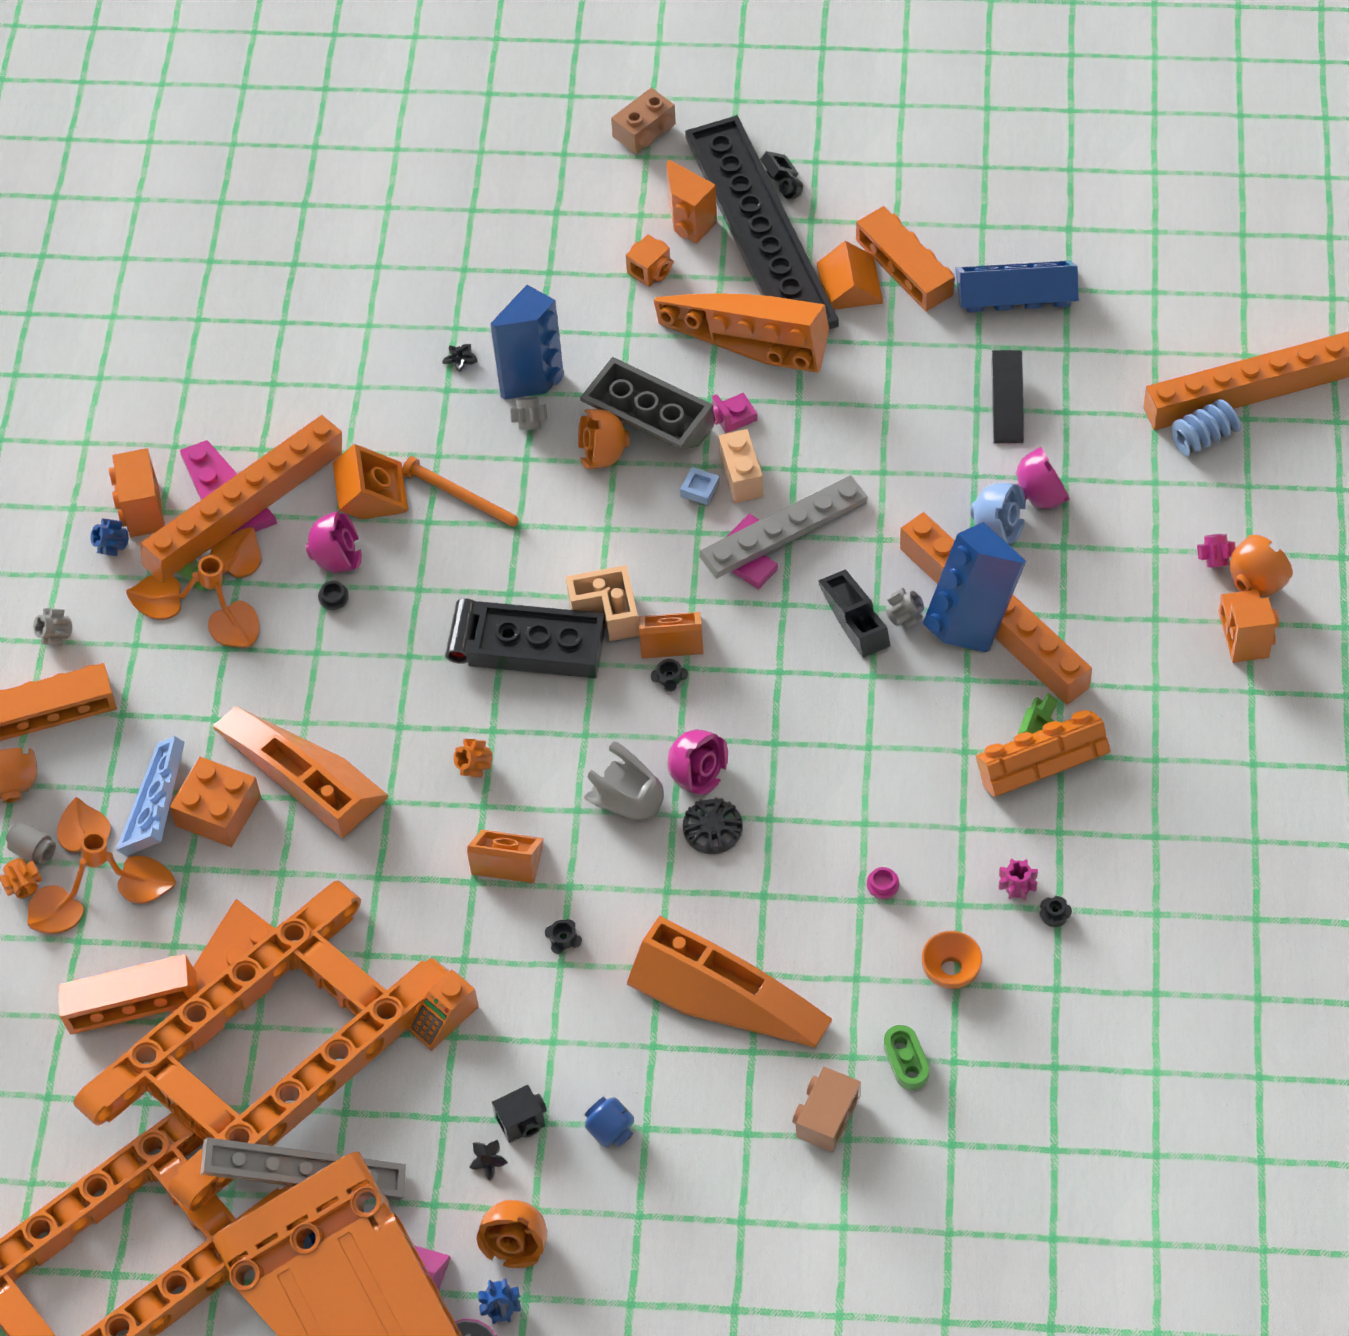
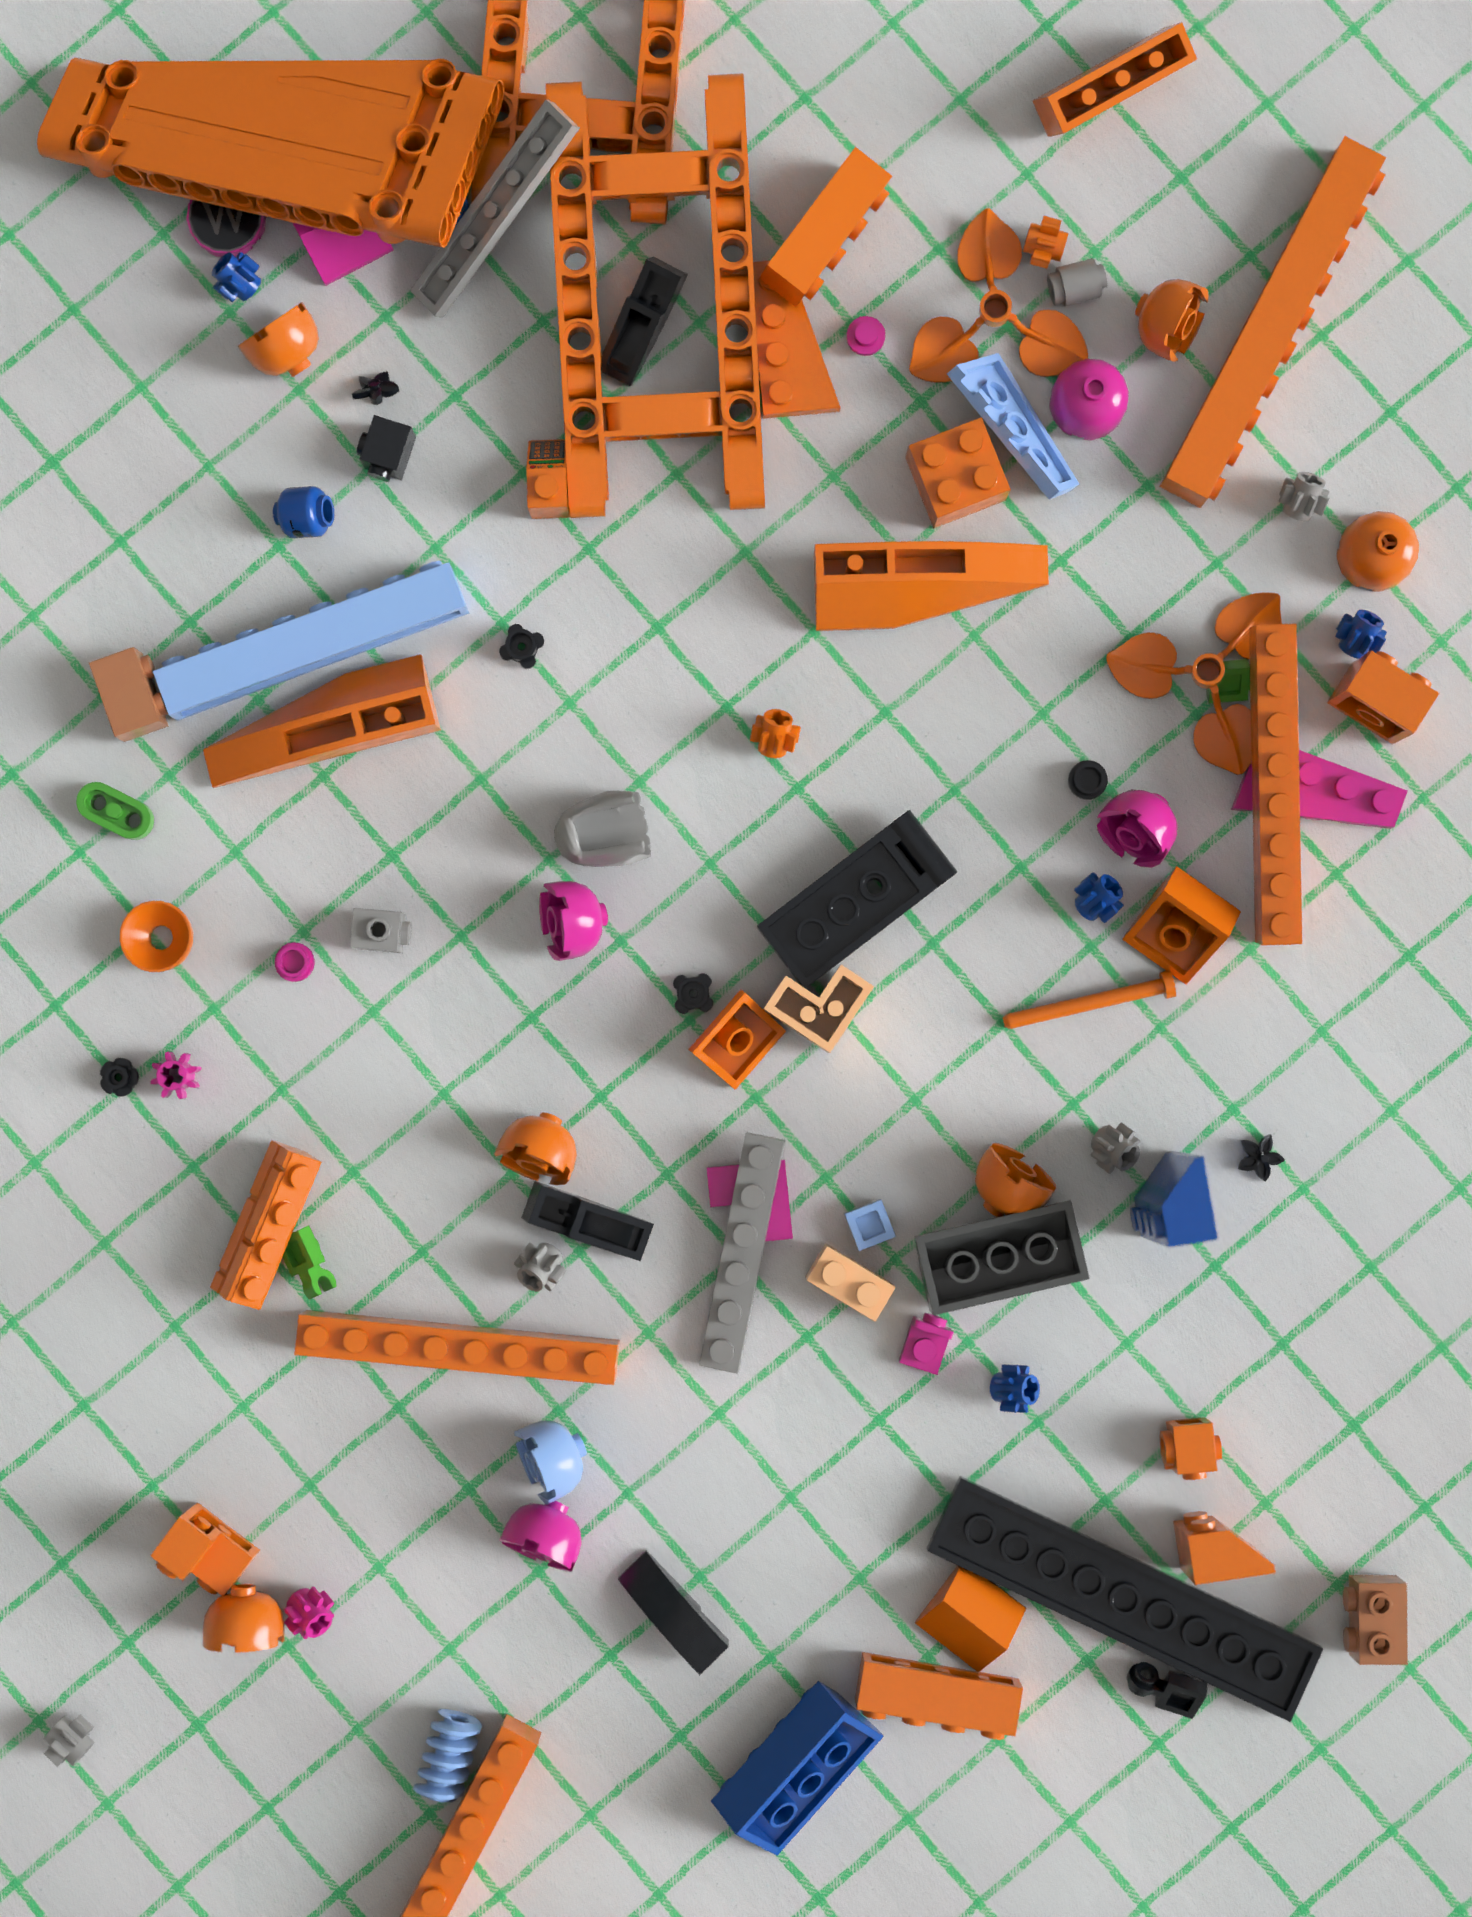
camera: 130 degrees right, 30 degrees up
(48, 572) = (1367, 561): none -> orange cylinder
(98, 779) = (1089, 399): none -> dark pink cylinder
(175, 925) = (865, 336): none -> dark pink plate
(281, 1049) = (641, 320): none -> black slope
(396, 531) = (1098, 897): none -> blue gear
(505, 855) = (651, 674): orange slope -> none
(683, 1044) = (310, 641): none -> light blue brick
(709, 352) = (1014, 1388): none -> blue gear
(712, 825) = (501, 877): black wheel -> none
(754, 326) = (999, 1458): orange wedge -> none
(814, 853) = (379, 930): none -> light grey brick
(840, 663) = (538, 1147): none -> orange cylinder
(974, 589) = (464, 1327): blue slope -> none

